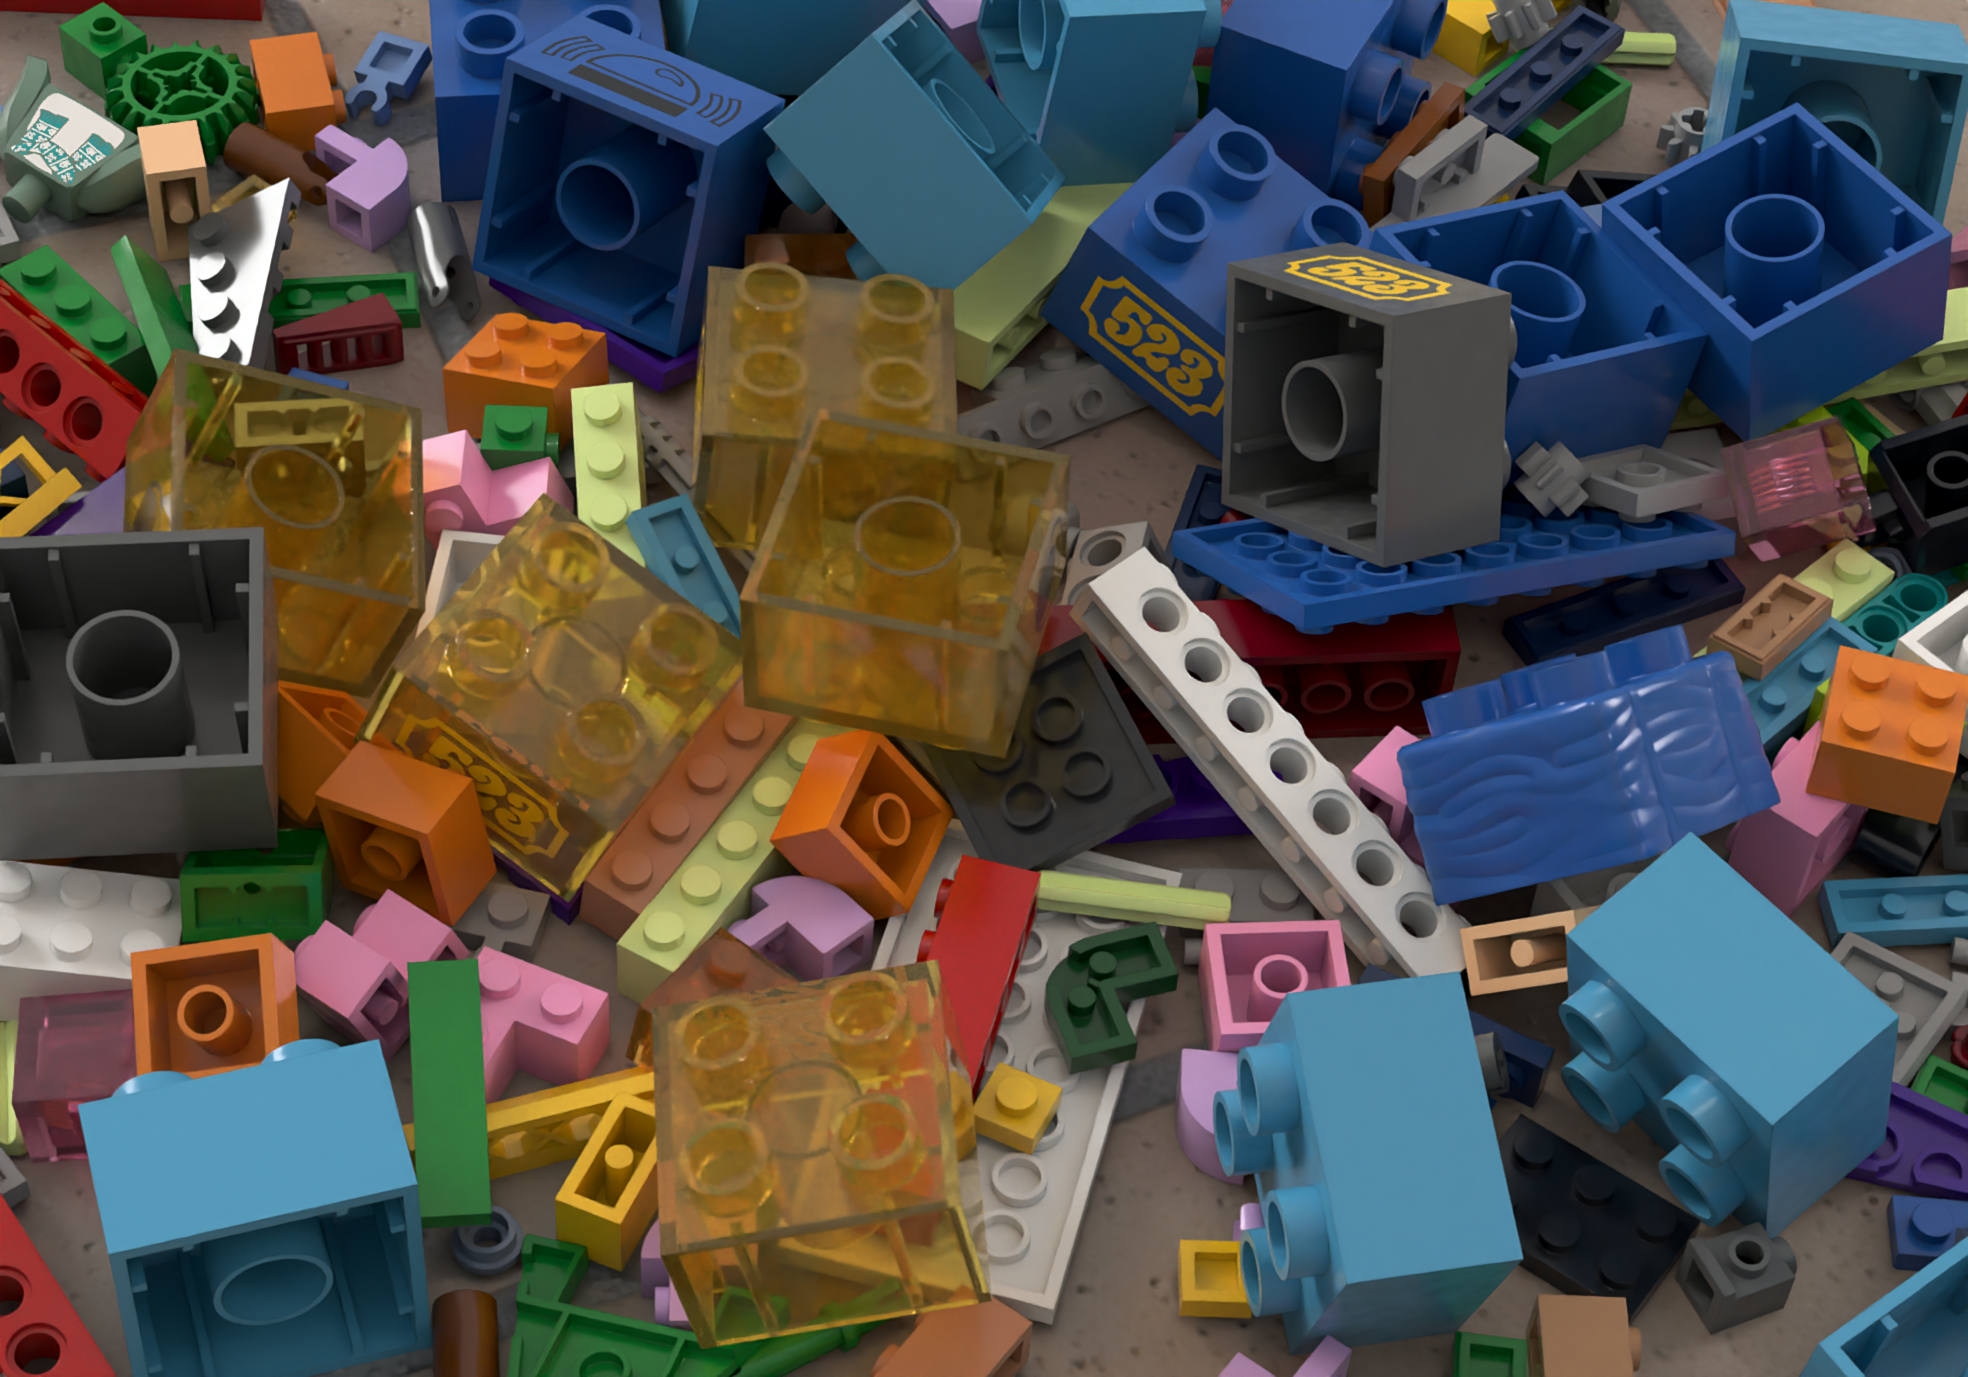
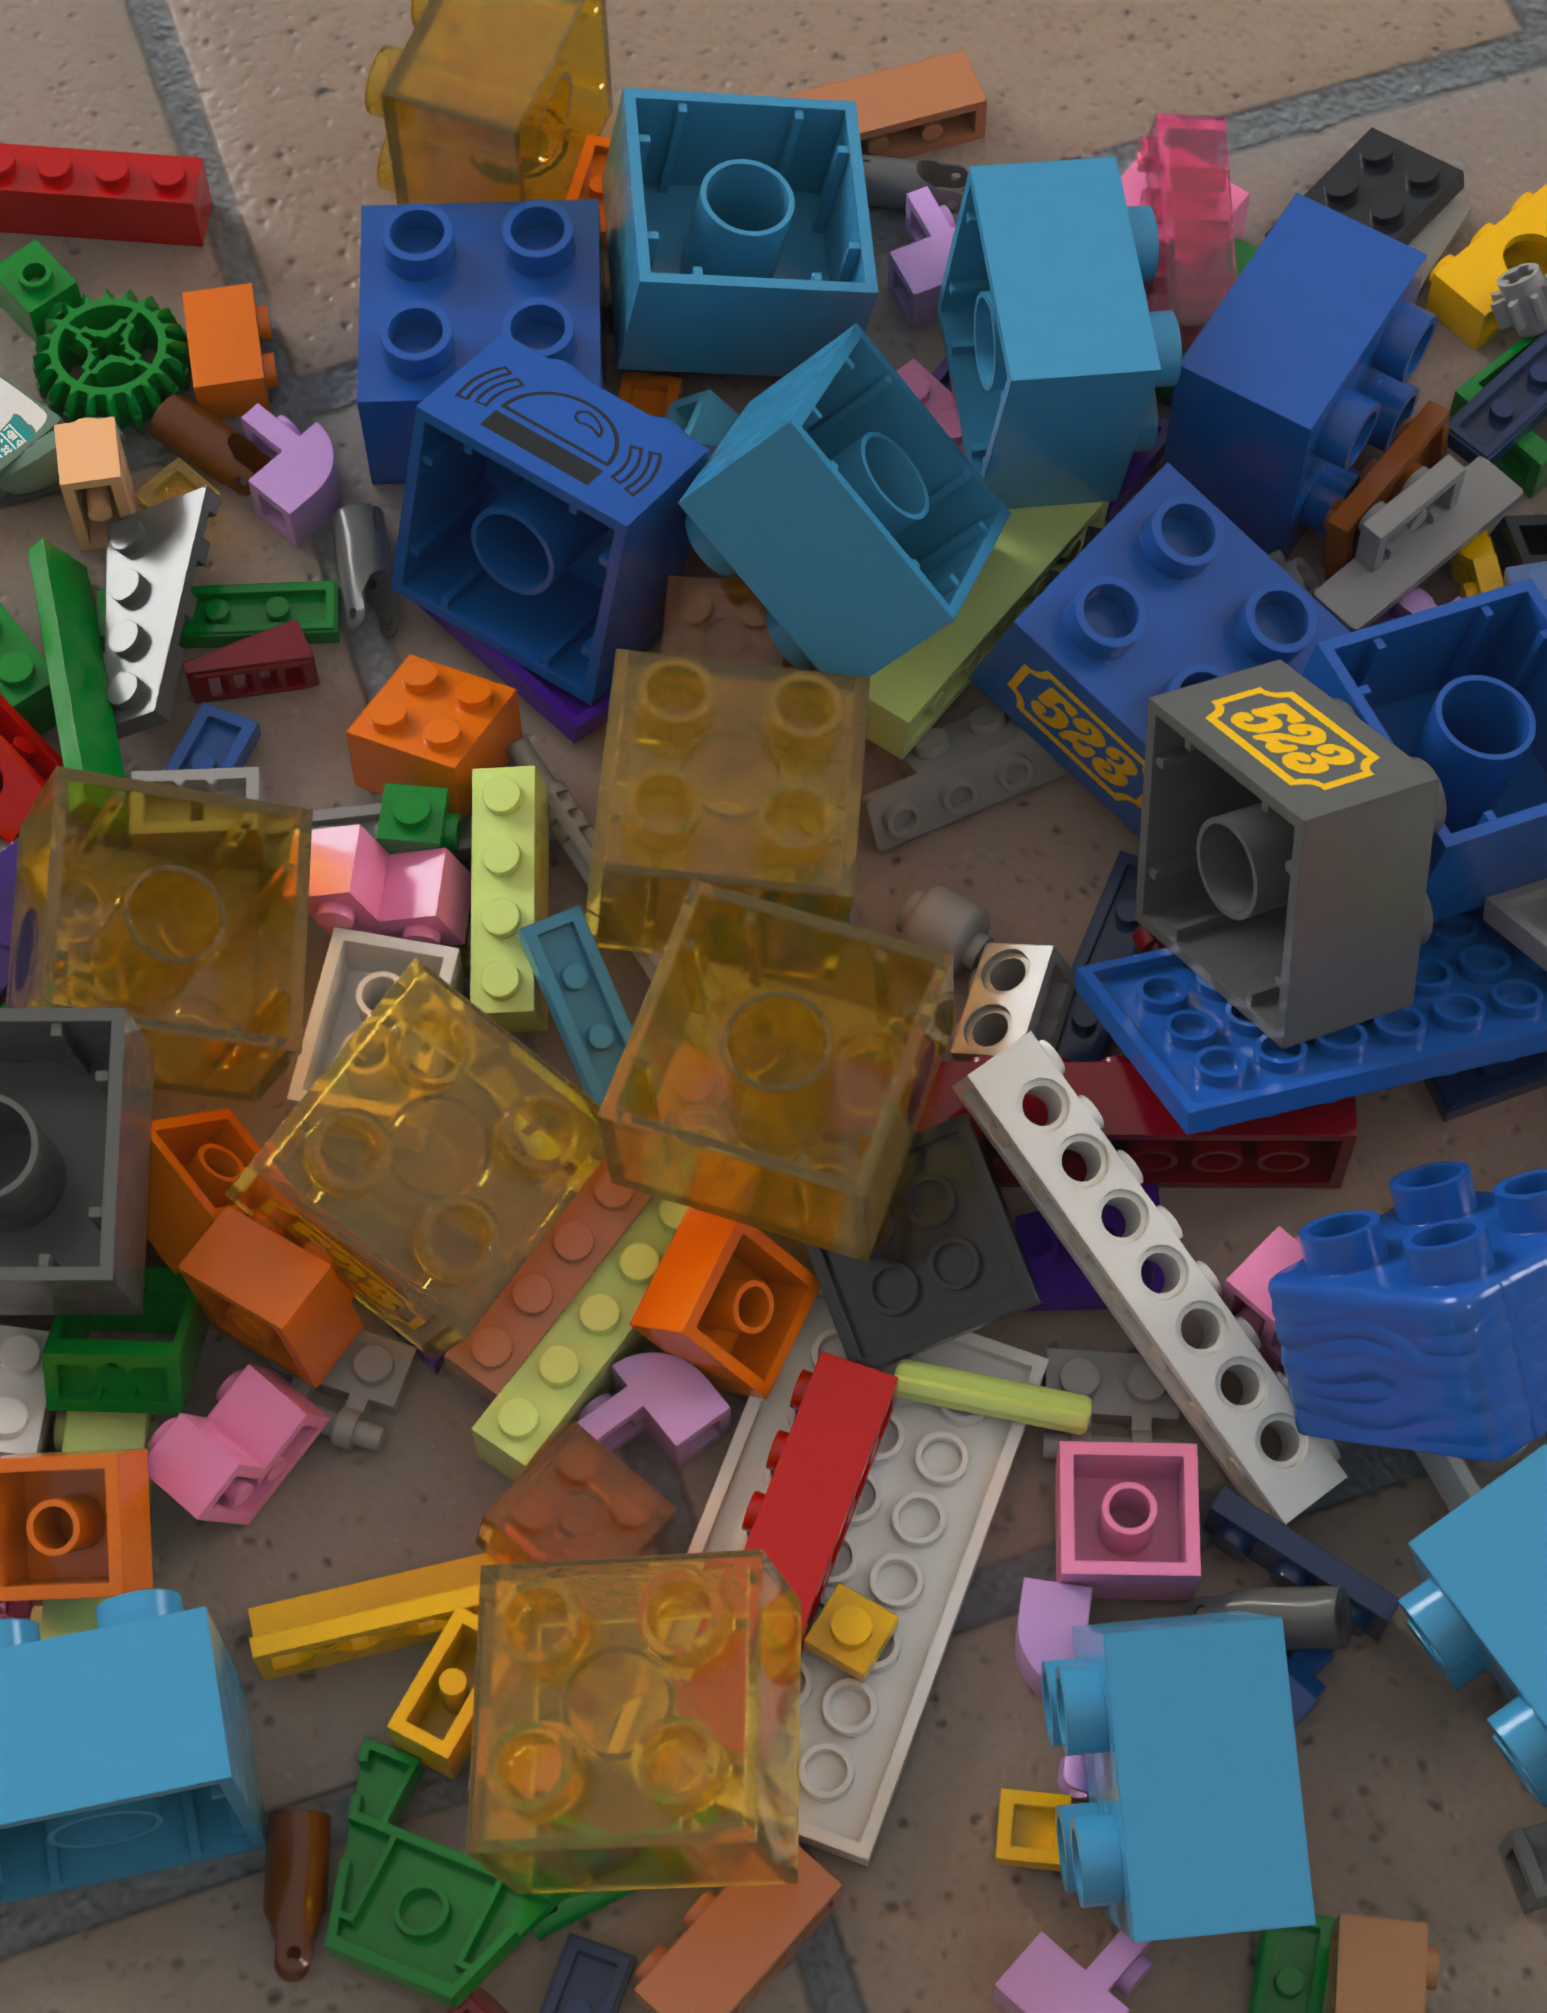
camera: 10 degrees right, 15 degrees up
(387, 70) = (324, 324): medium blue plate -> none
(449, 1093) = (291, 1601): green tile -> none
(493, 1259) = (315, 1724): sand blue plate -> none
(537, 1023) = (360, 1496): bright pink brick -> none
(1091, 984) = (938, 1494): dark green plate -> none
(1519, 951) = (1393, 1490): light nougat brick -> none
(1552, 479) = (1479, 927): light grey gear -> none
(1587, 1222) = (1403, 1780): black plate -> none

